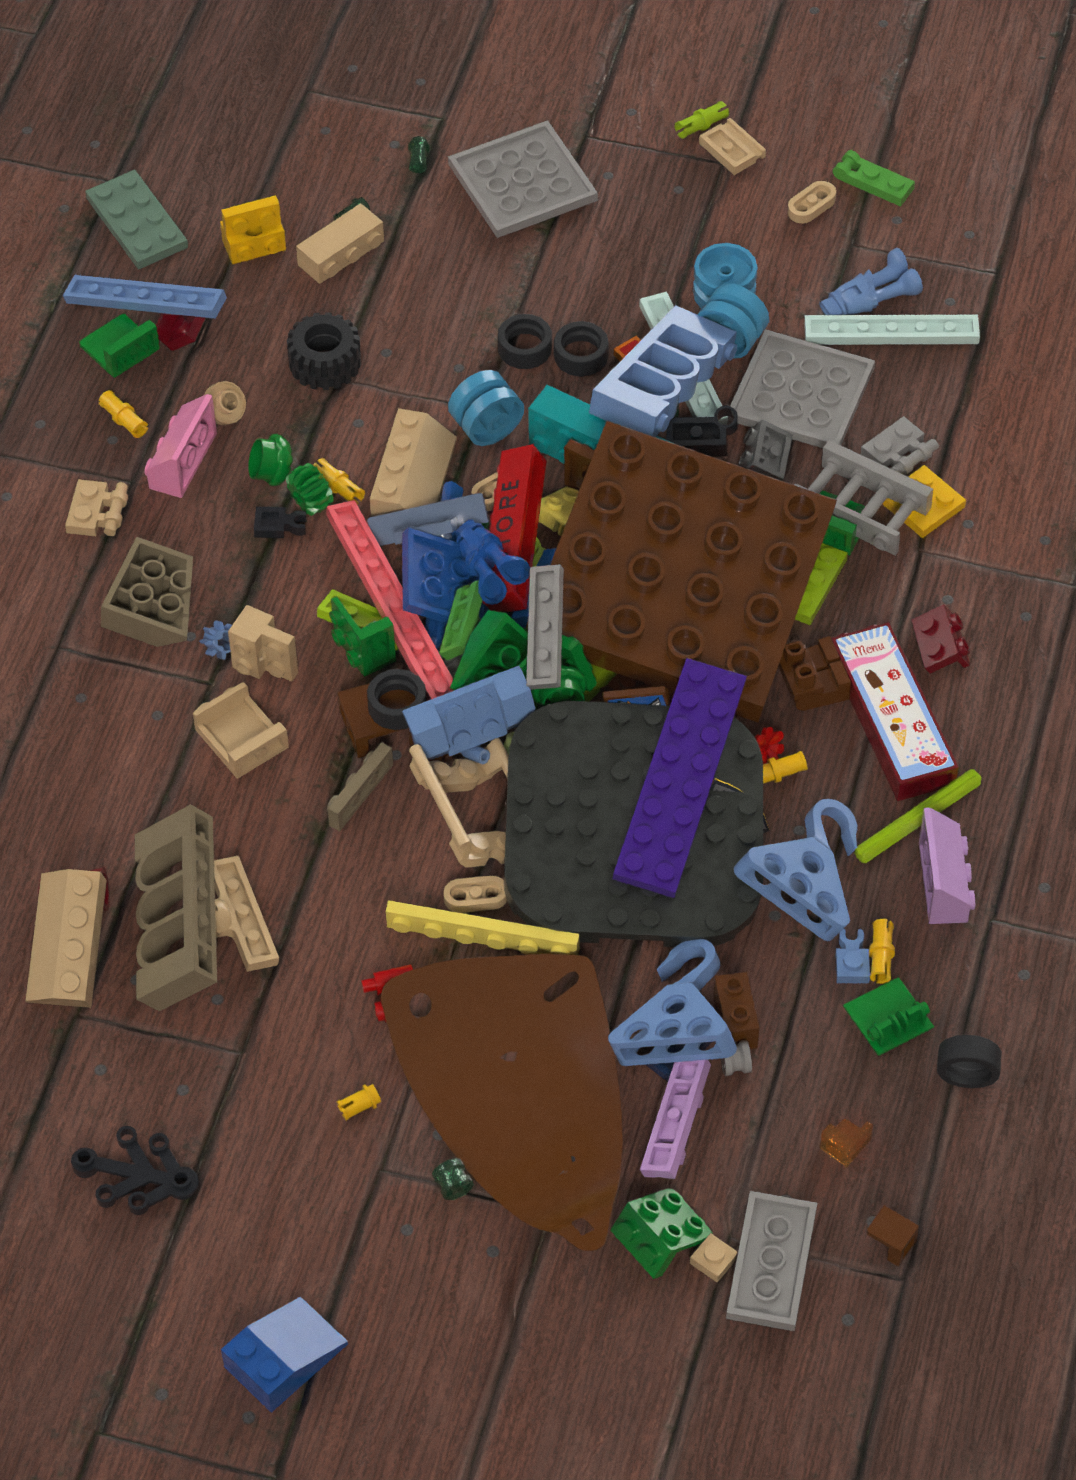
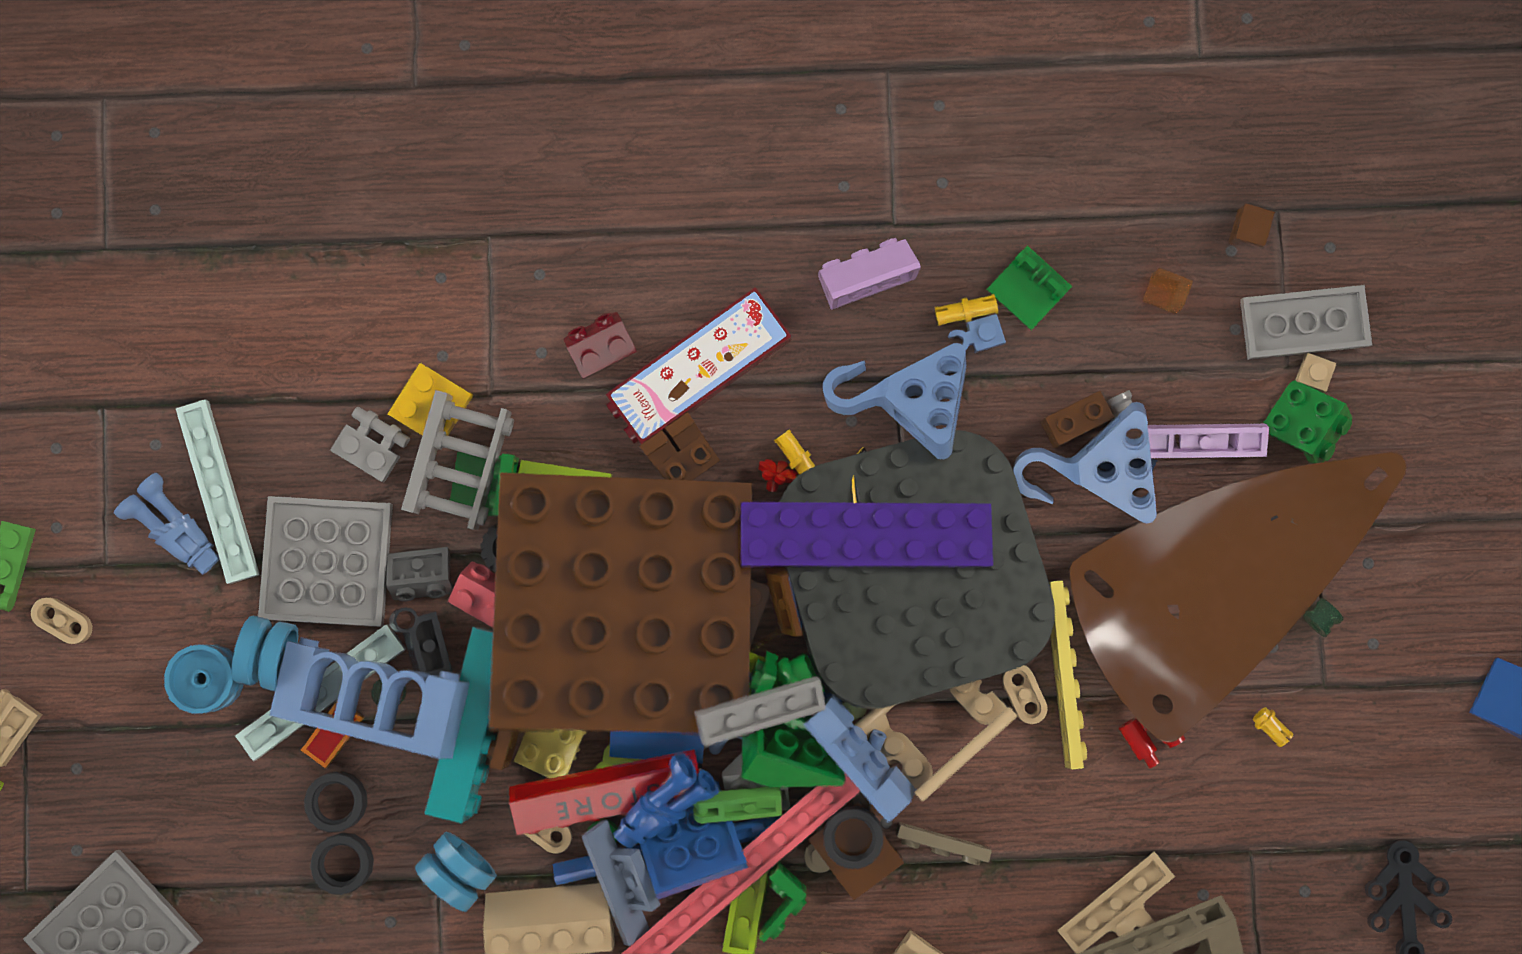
camera: 105 degrees left, 30 degrees up
(913, 819) = (806, 315): lime axle -> none
(969, 1061) = (1068, 201): black tyre -> none

